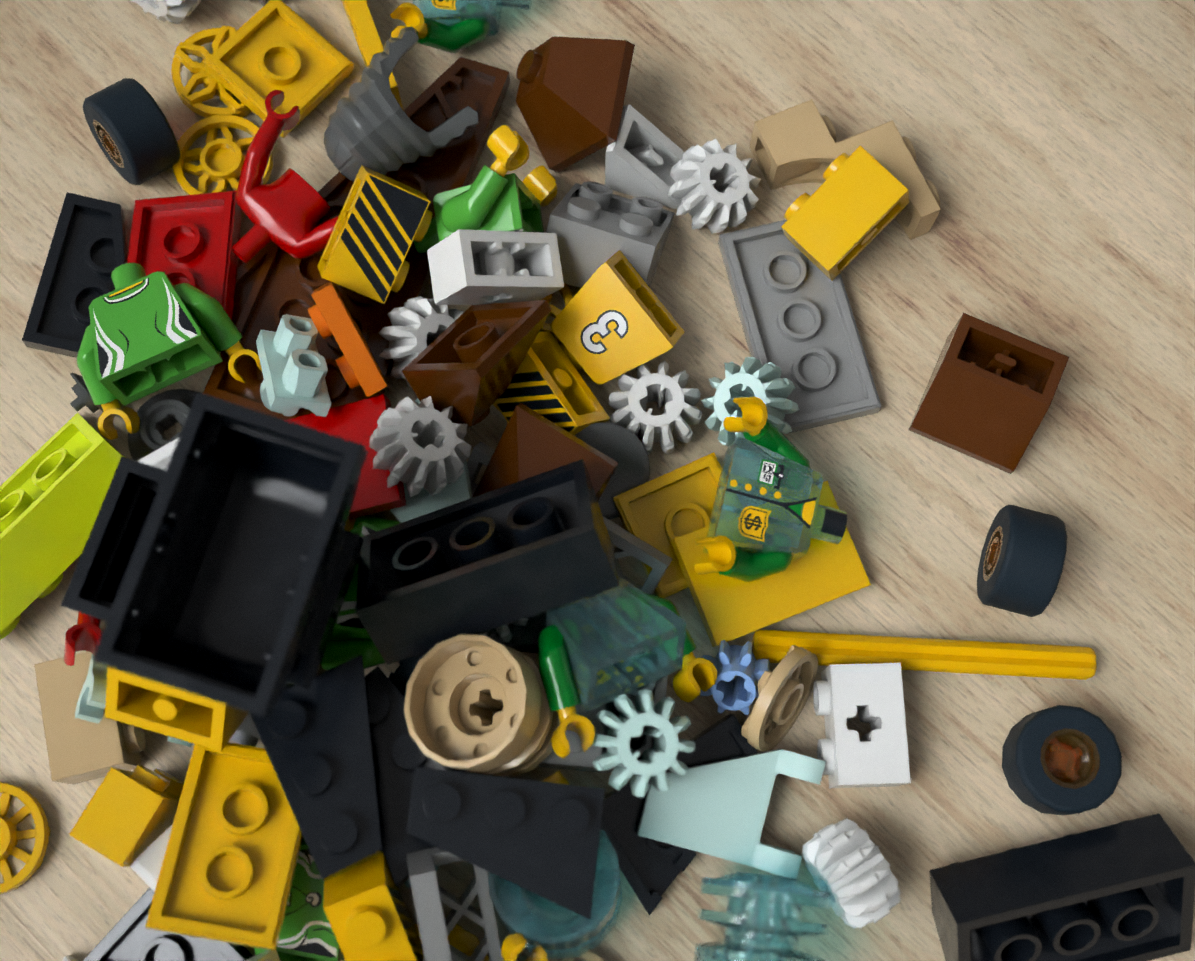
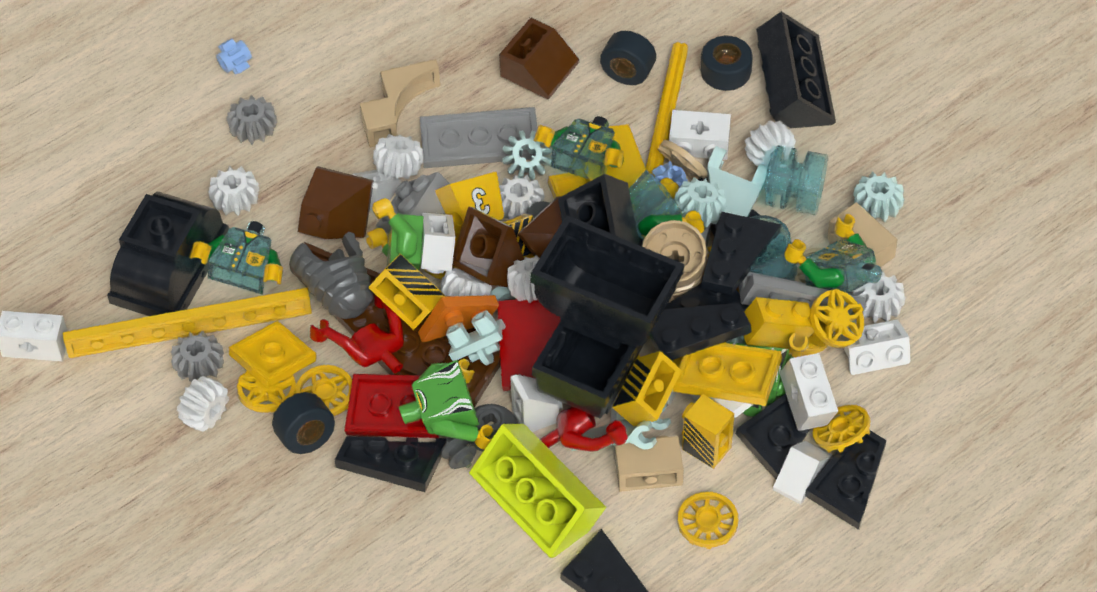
camera: 80 degrees left, 20 degrees down
(844, 211) = (432, 96): yellow brick -> none

